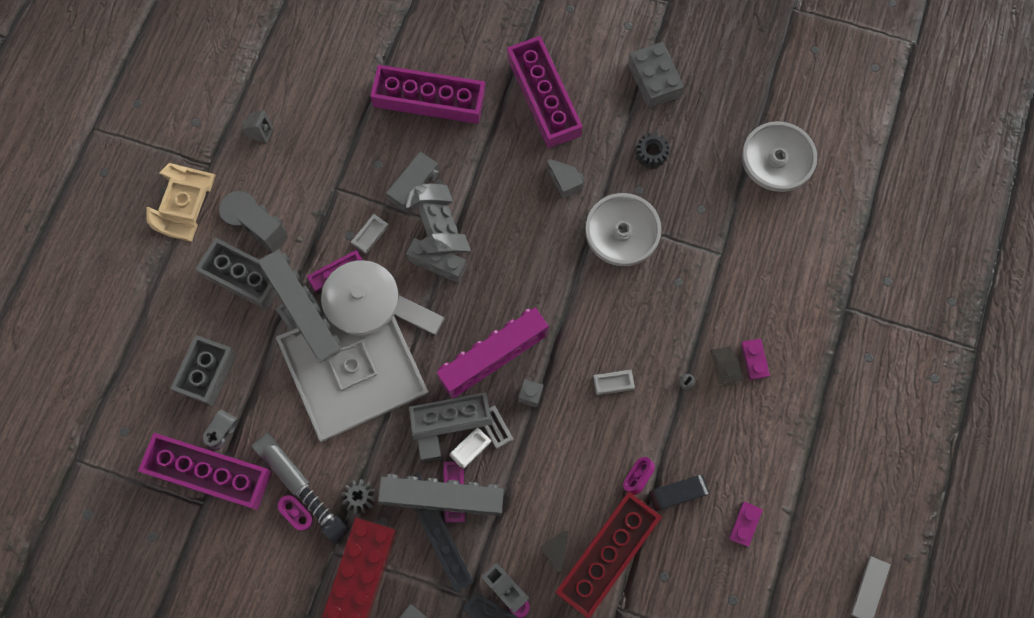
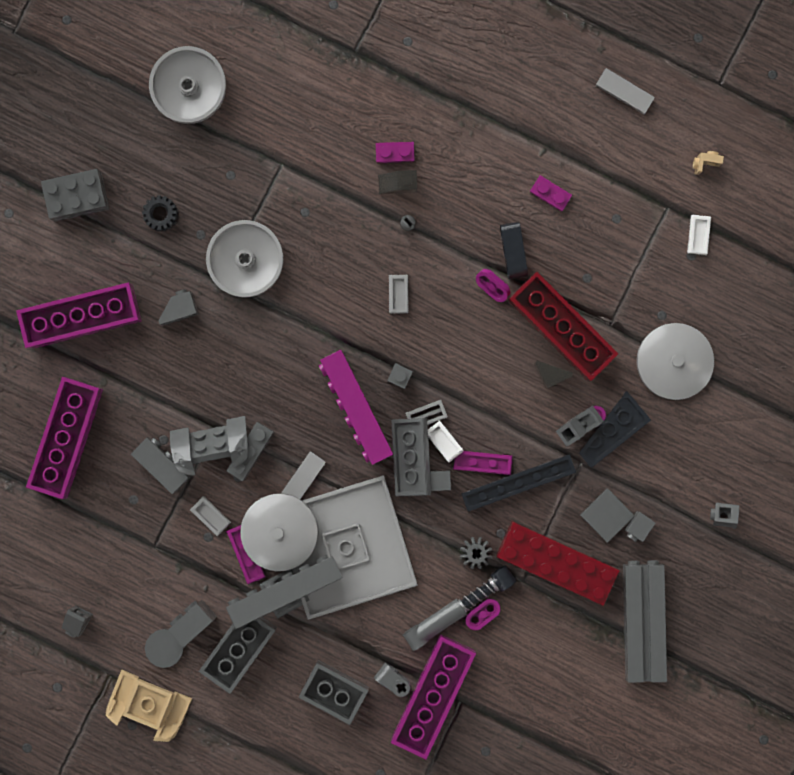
camera: 80 degrees left, 15 degrees up
(441, 496) = (488, 474): dark grey brick -> none

